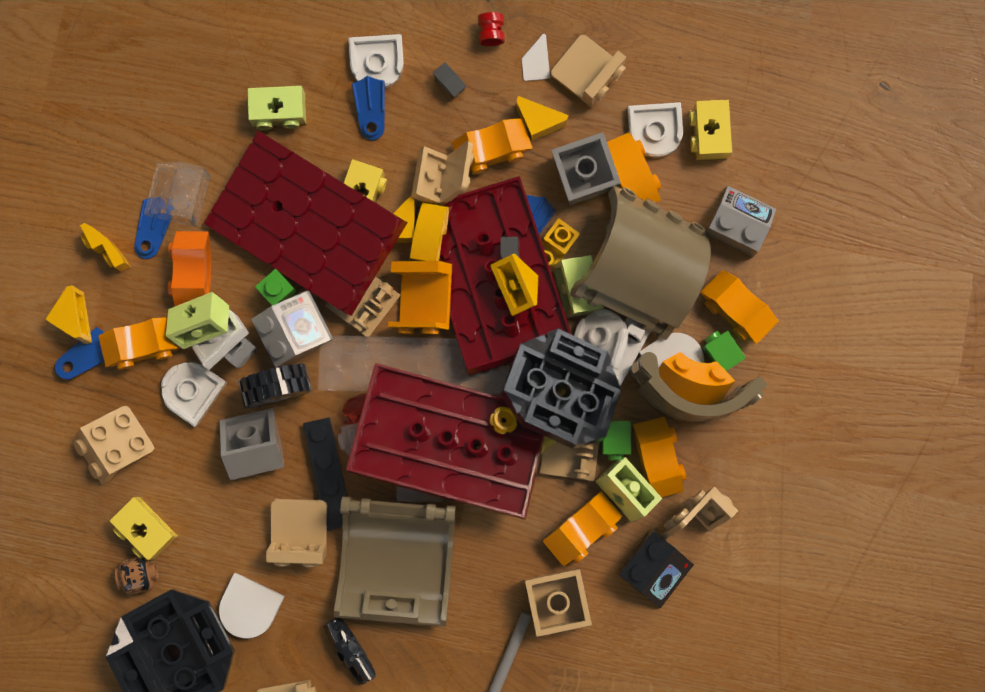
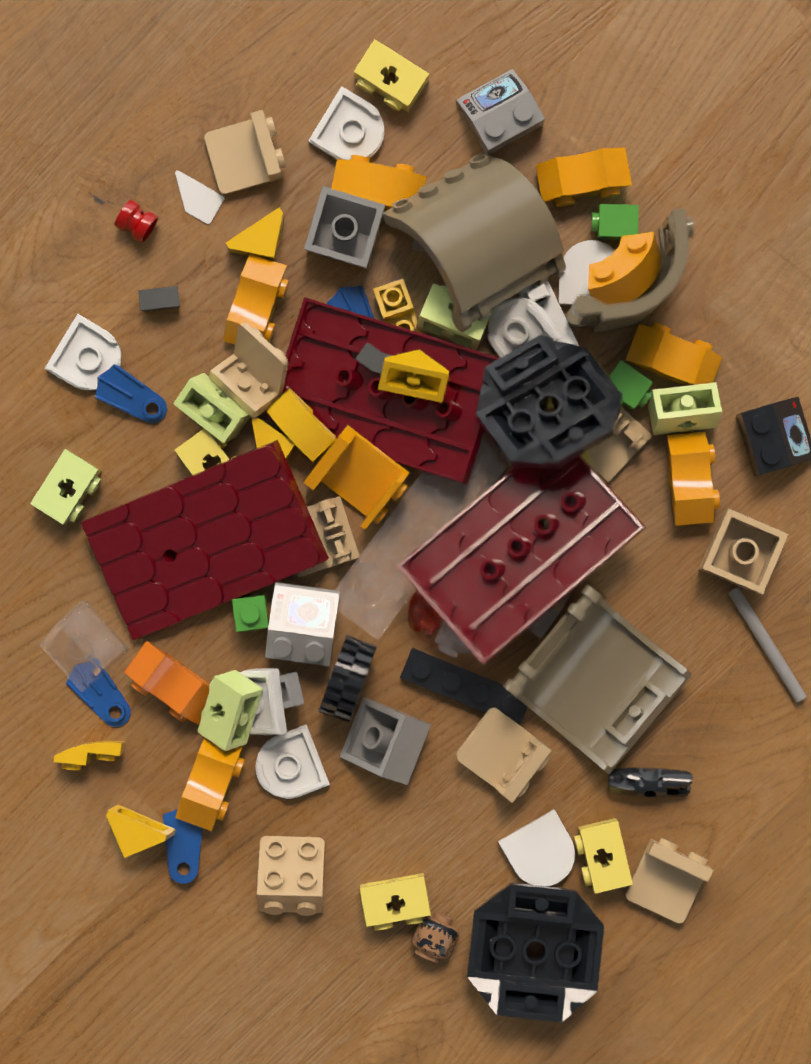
camera: 50 degrees left, 5 degrees up
(268, 670) = (615, 871): none -> light yellow brick
(398, 165) = (212, 408): none -> yellowish green brick
(495, 420) = (541, 489): yellow plate -> none
(708, 507) = (755, 344): tan bracket -> none

